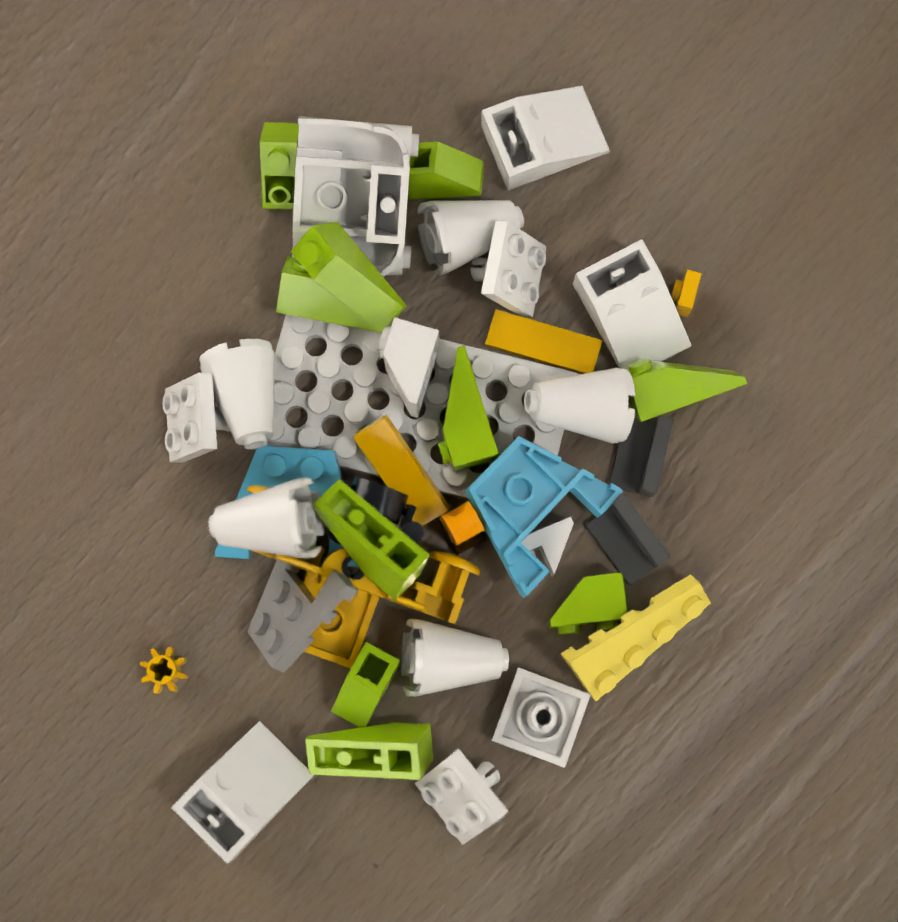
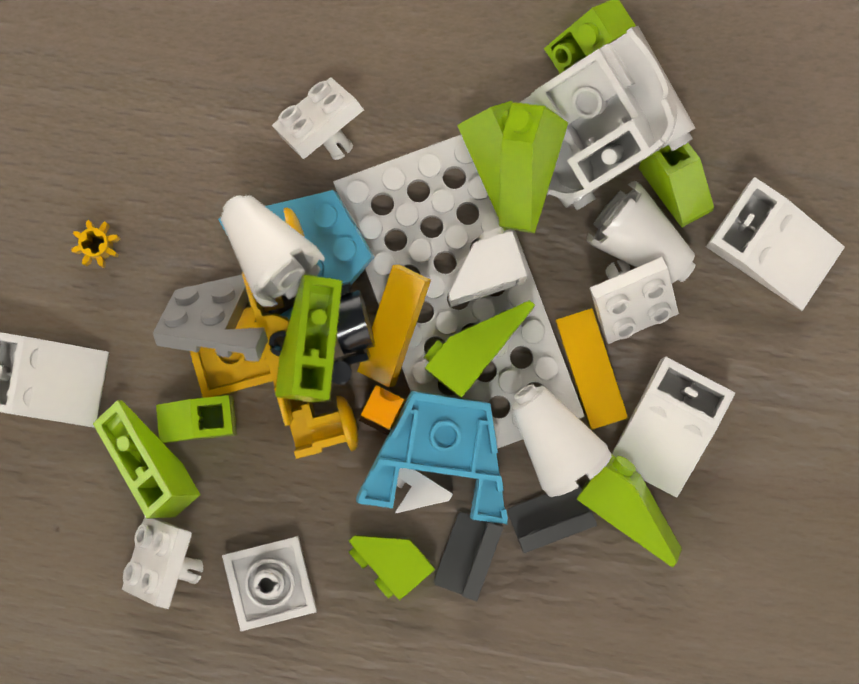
camera: 60 degrees right, 5 degrees up
(244, 388) = (371, 145): white cone -> none
(448, 658) = (264, 473): white cone -> none
(627, 646) = (391, 619): light yellow wing -> none
(685, 291) = (719, 460): yellow plate -> none

